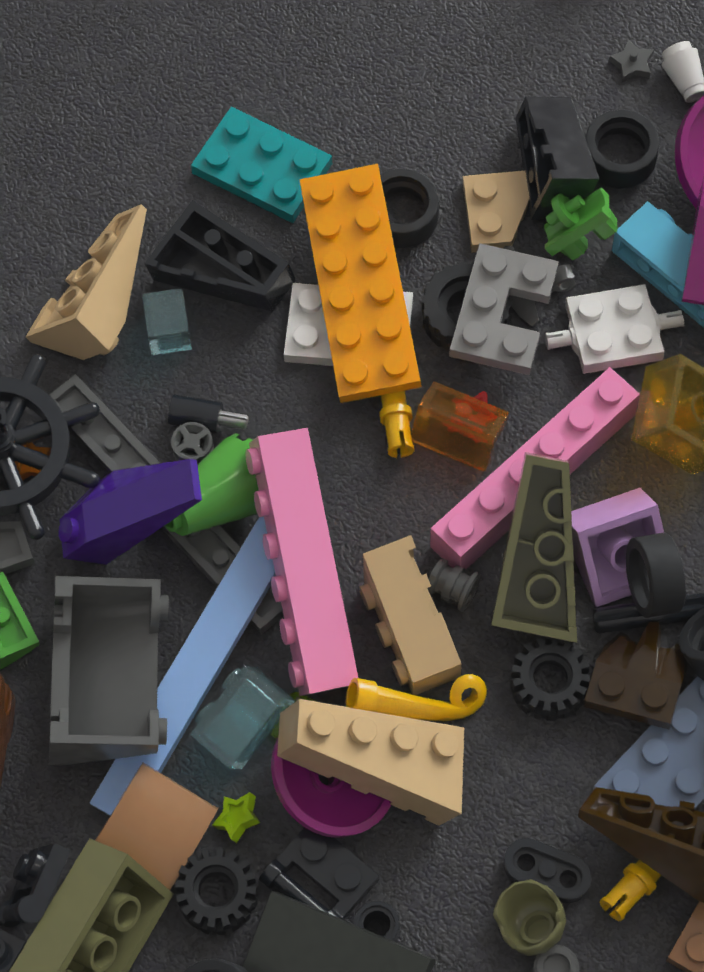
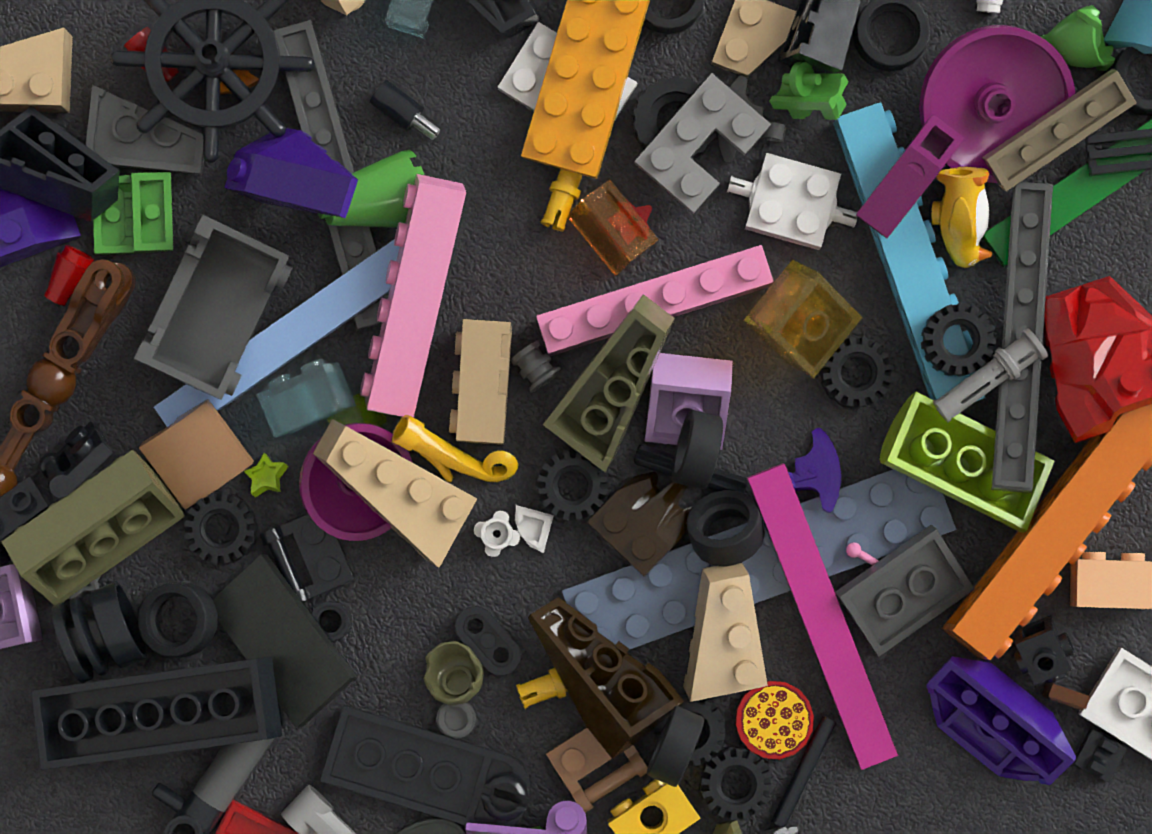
camera: 20 degrees right, 20 degrees up
(191, 437) = (378, 128): dark grey wheel -> none
(495, 750) = (498, 522): none -> white plate
(531, 739) = (533, 526): none -> white tile

